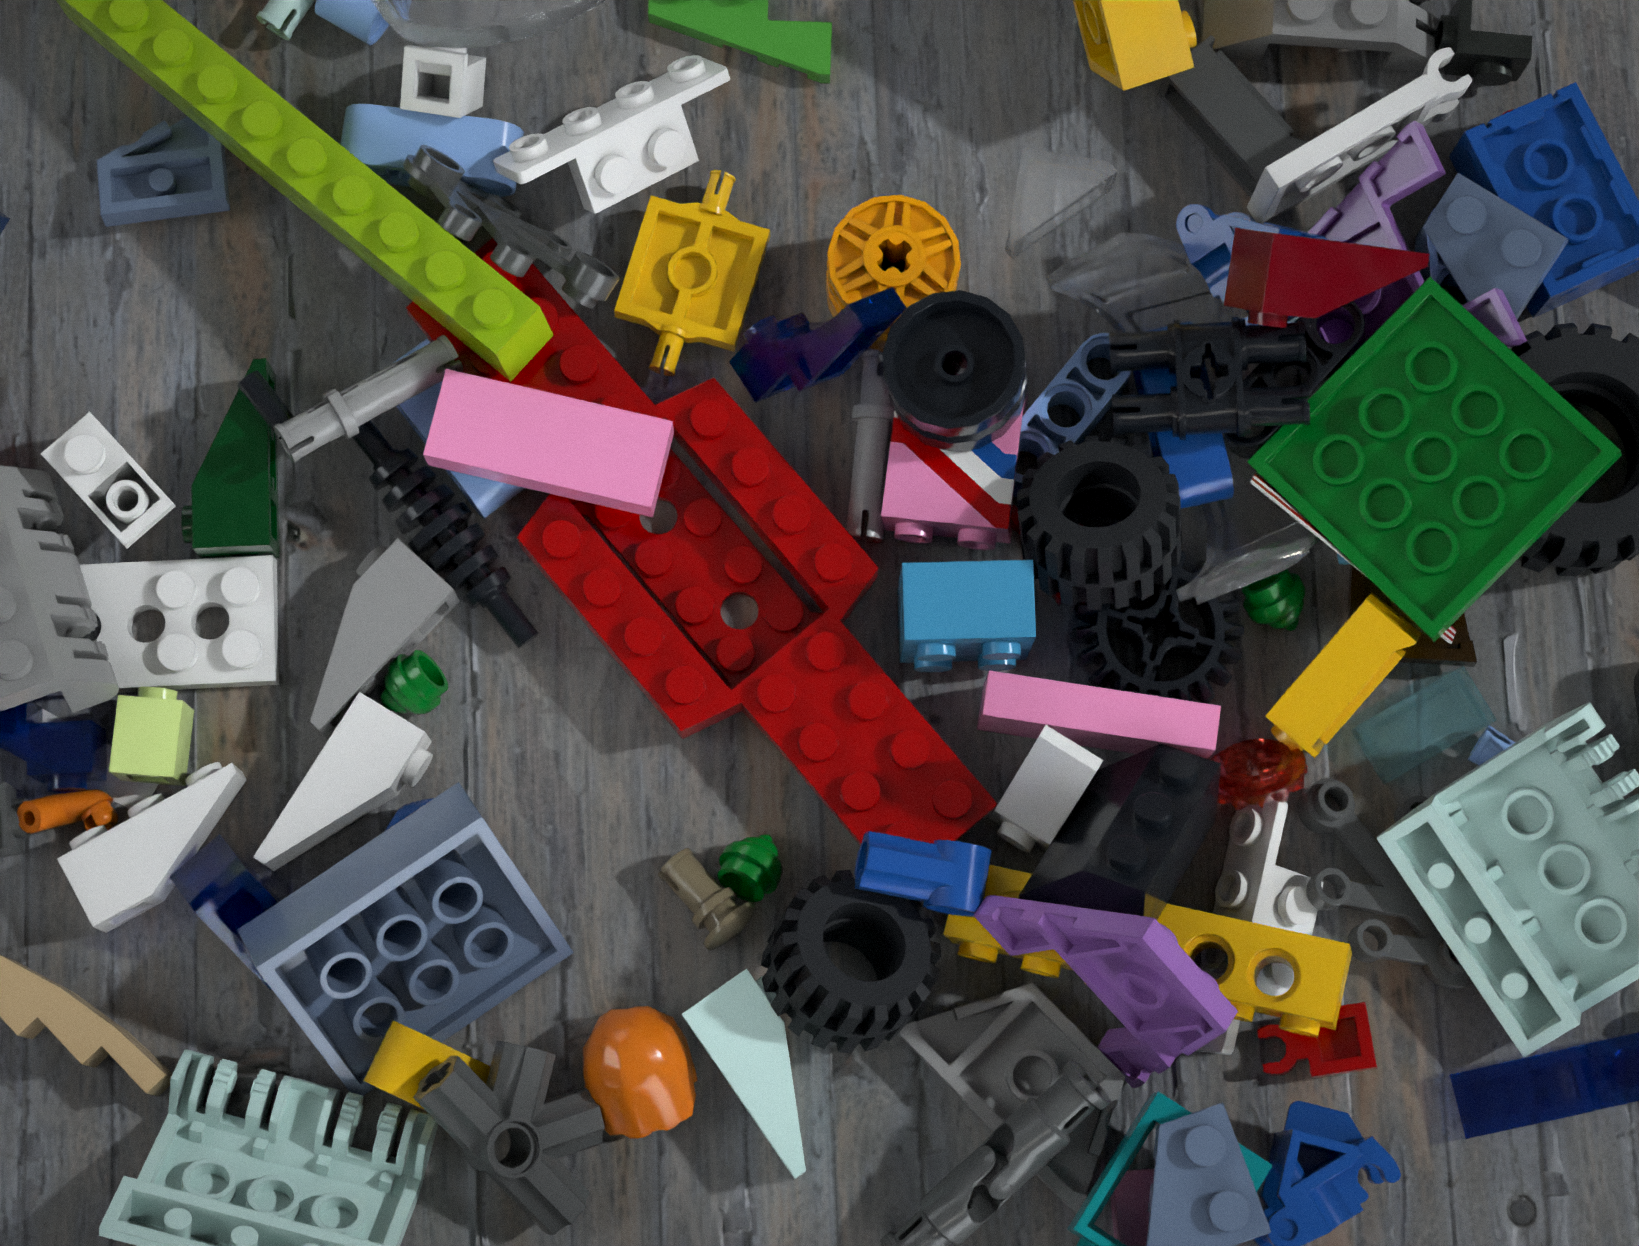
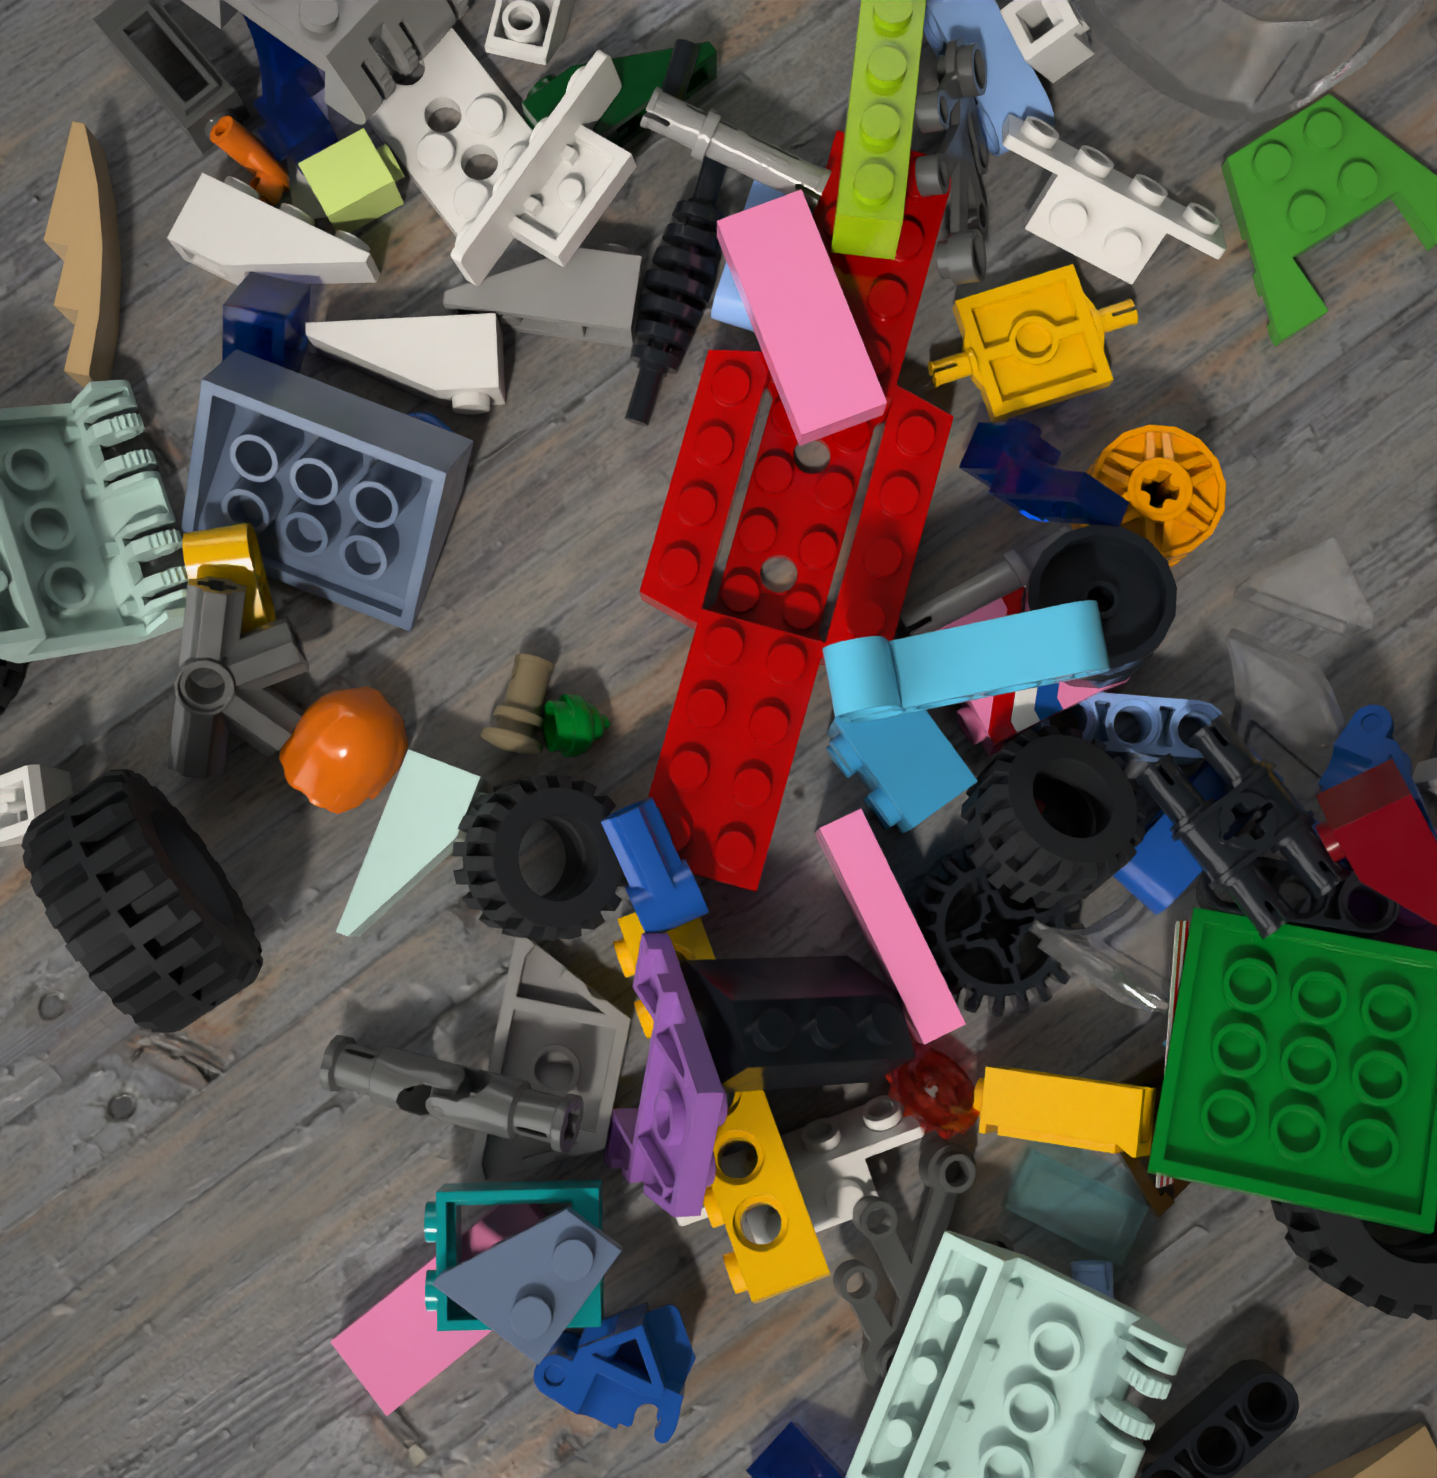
camera: 60 degrees right, 5 degrees up
(294, 564) = (557, 182): none -> white bracket
(413, 684) = (538, 355): green plate -> none
(936, 500) = (964, 663): none -> medium azure beam
(1044, 791) = (789, 923): white slope -> none
(1275, 600) = (1093, 1012): green plate -> none
(1333, 1051) = (749, 1322): red plate -> none

